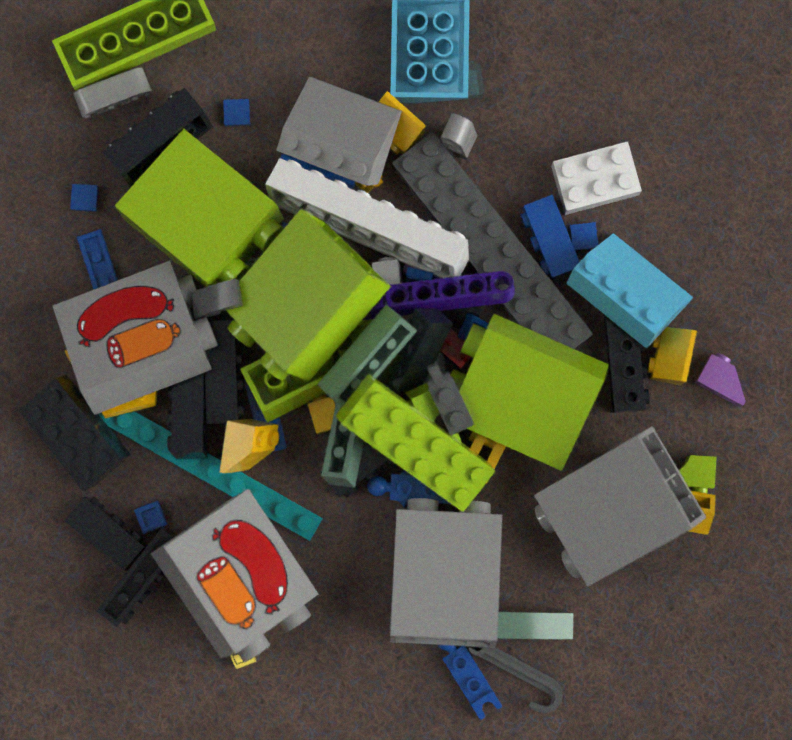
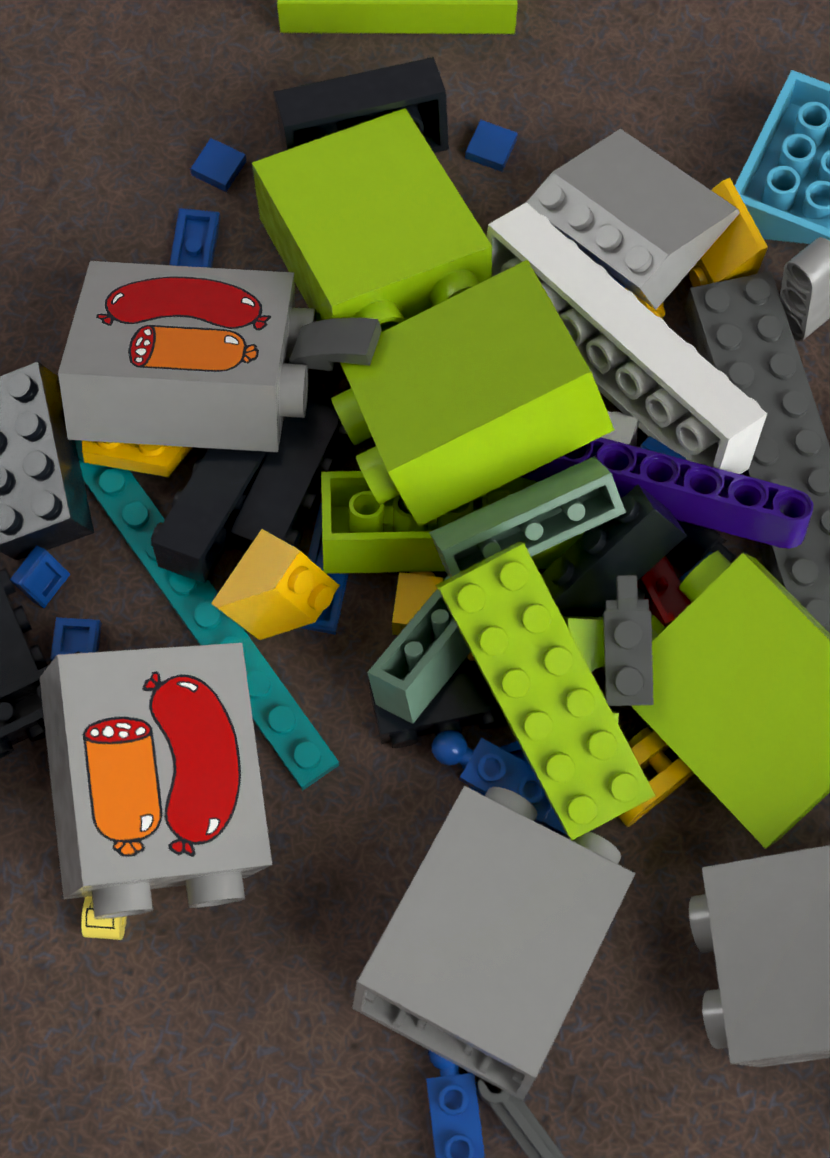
camera: 25 degrees right, 15 degrees down
(112, 91) = (328, 46): light grey beam -> none
(114, 492) = (40, 576): none -> blue tile
(535, 625) = (606, 1095): sand green slope -> none

